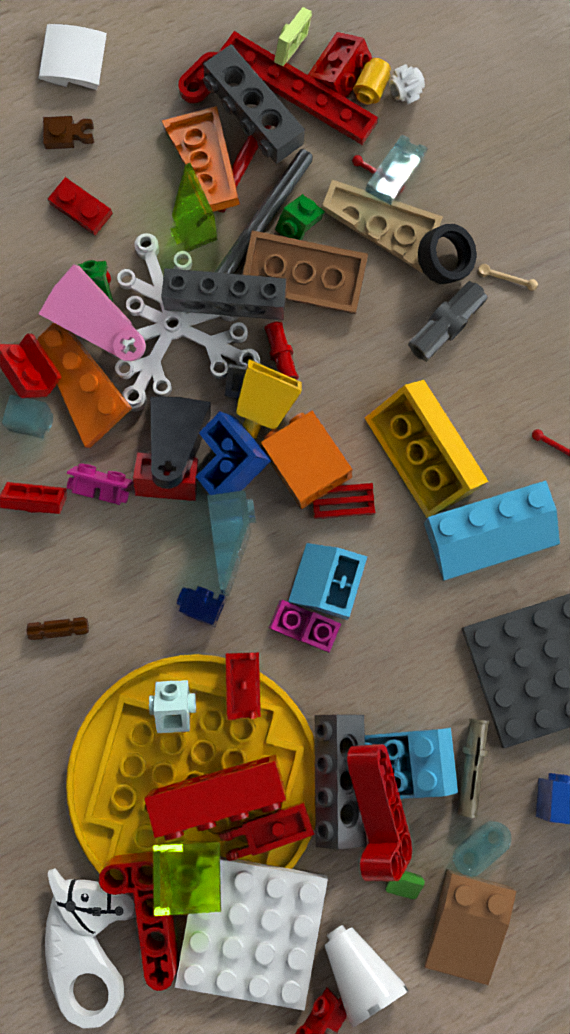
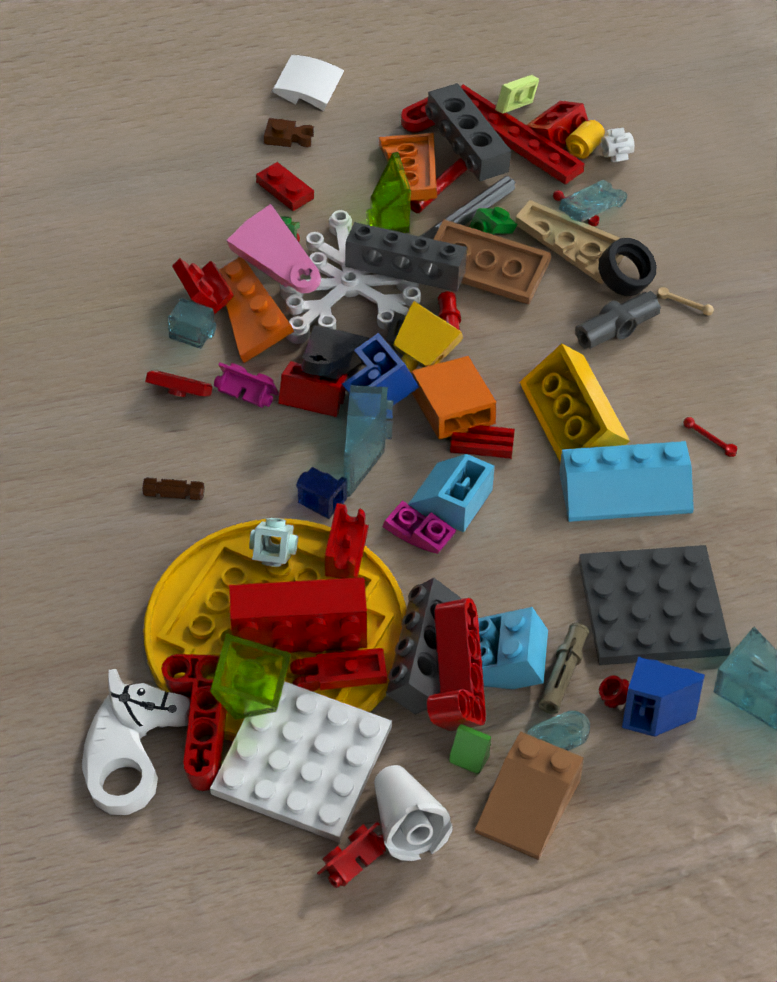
camera: 10 degrees right, 30 degrees down
(518, 789) = (609, 687): none -> red plate

